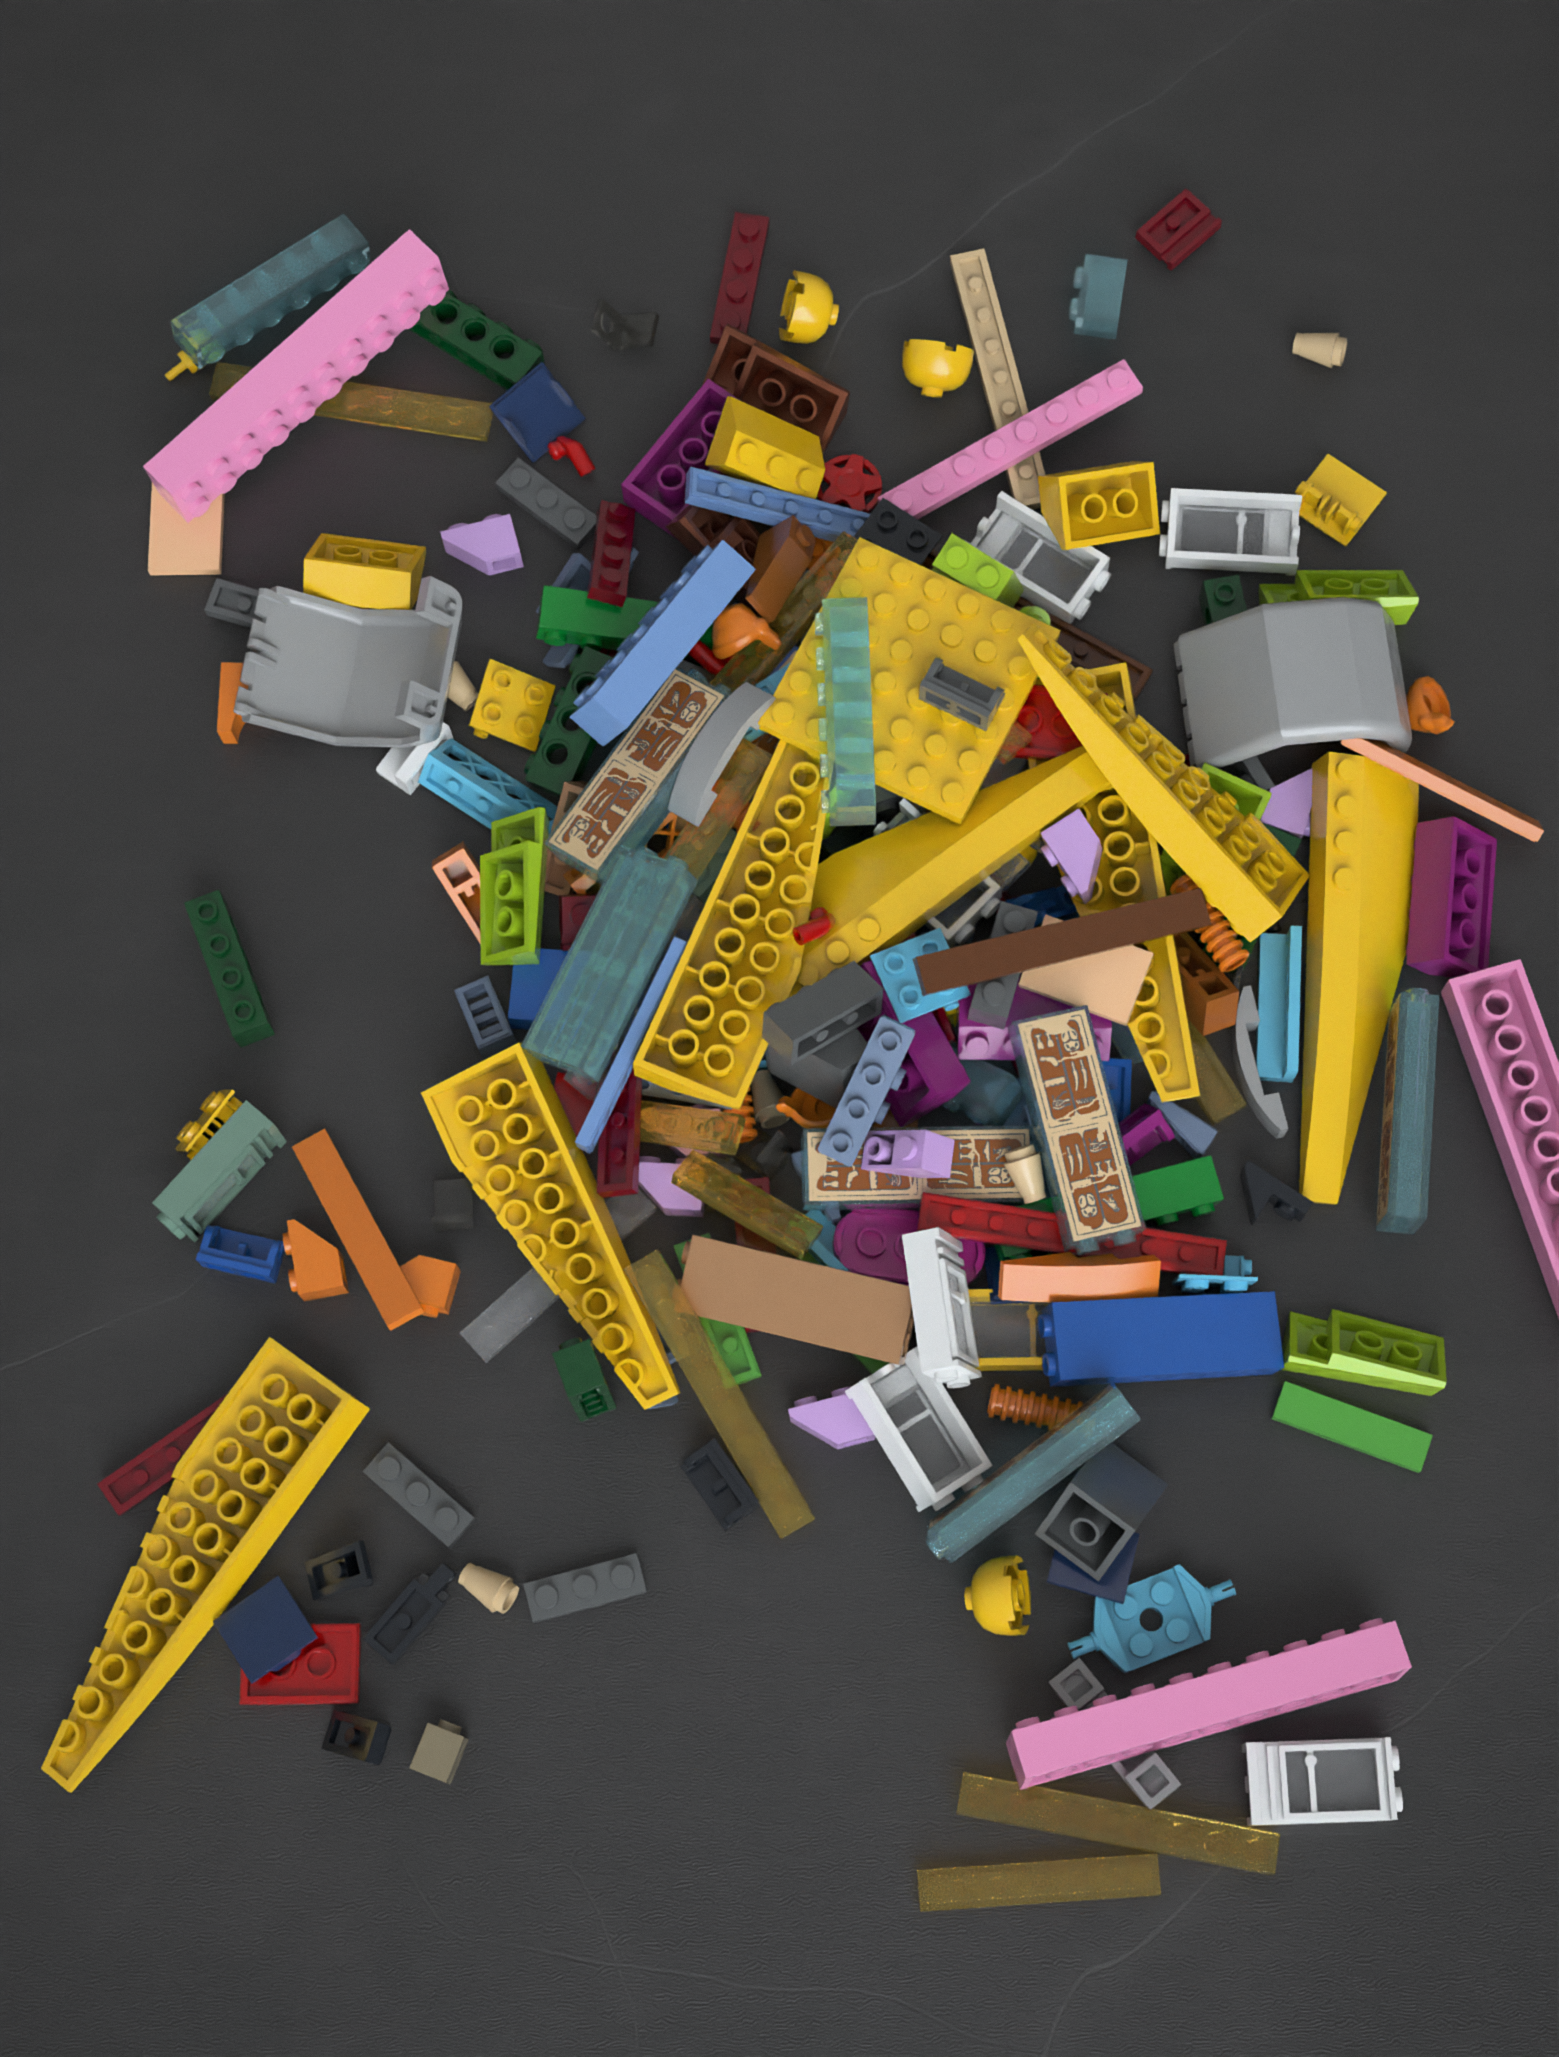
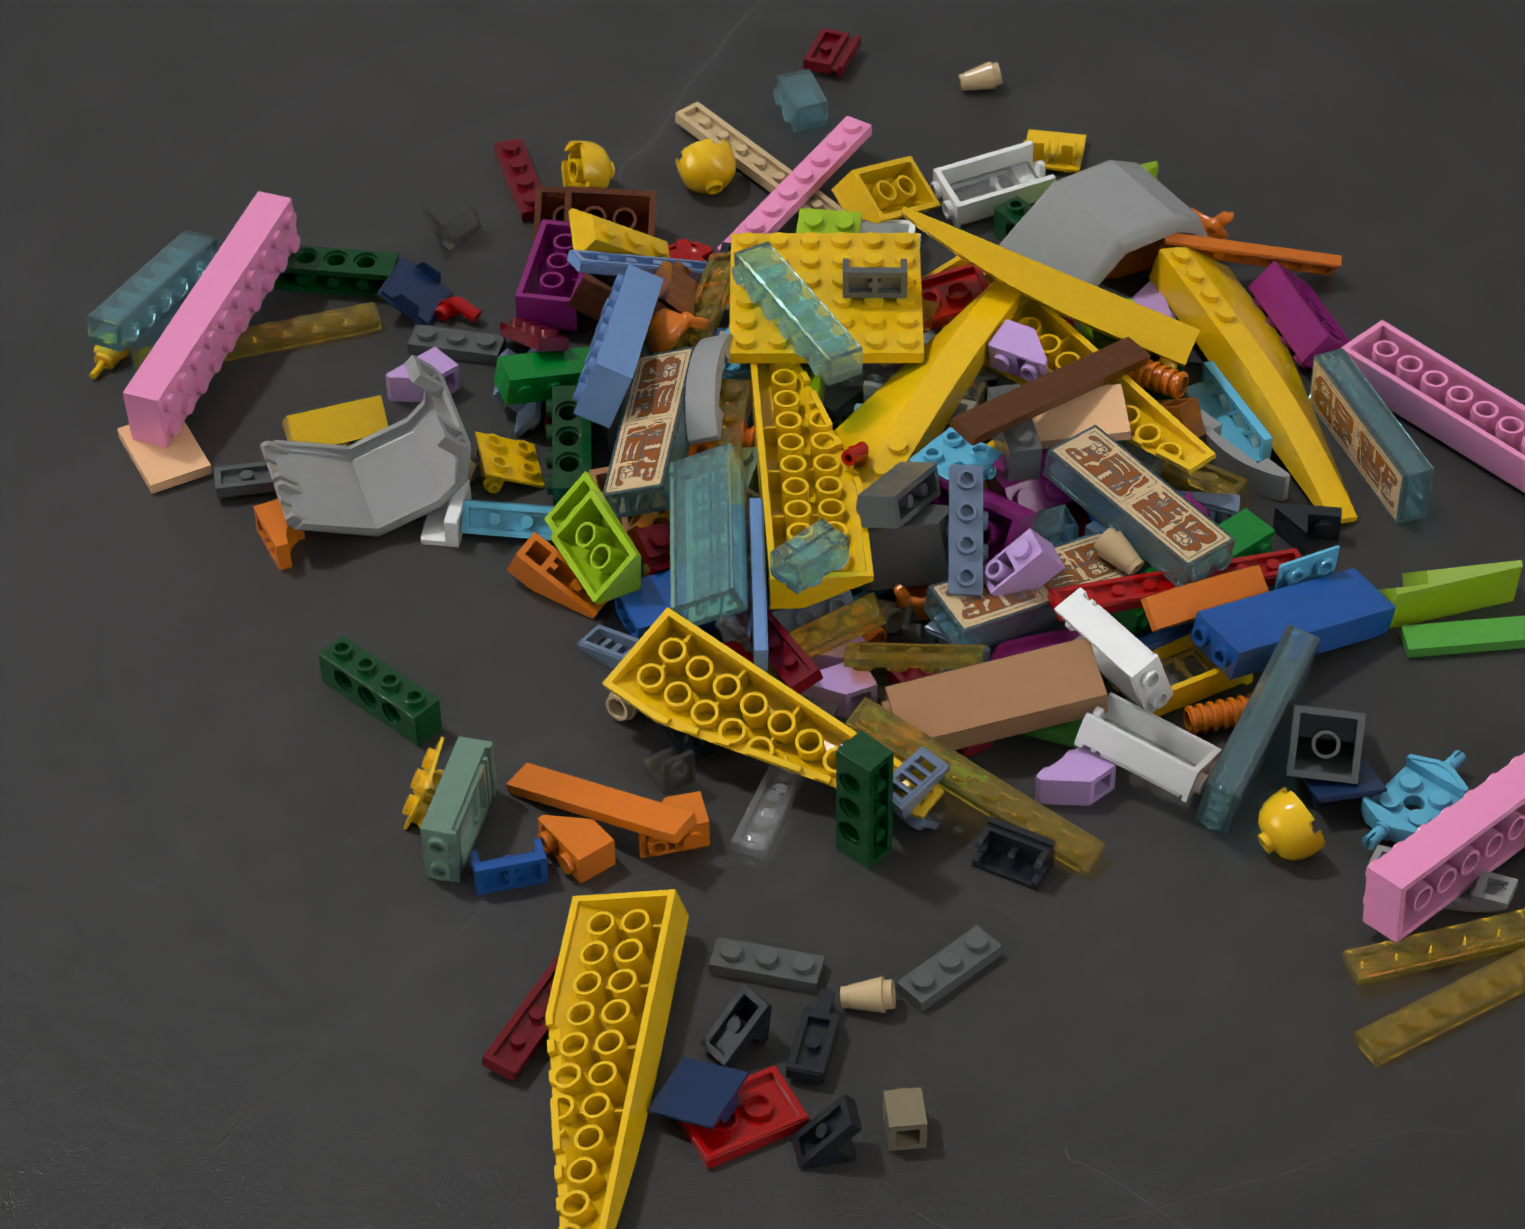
camera: 30 degrees left, 30 degrees down
(619, 1388) = (904, 806): none -> sand blue slope
(679, 1064) = (809, 556): none -> clear light blue brick

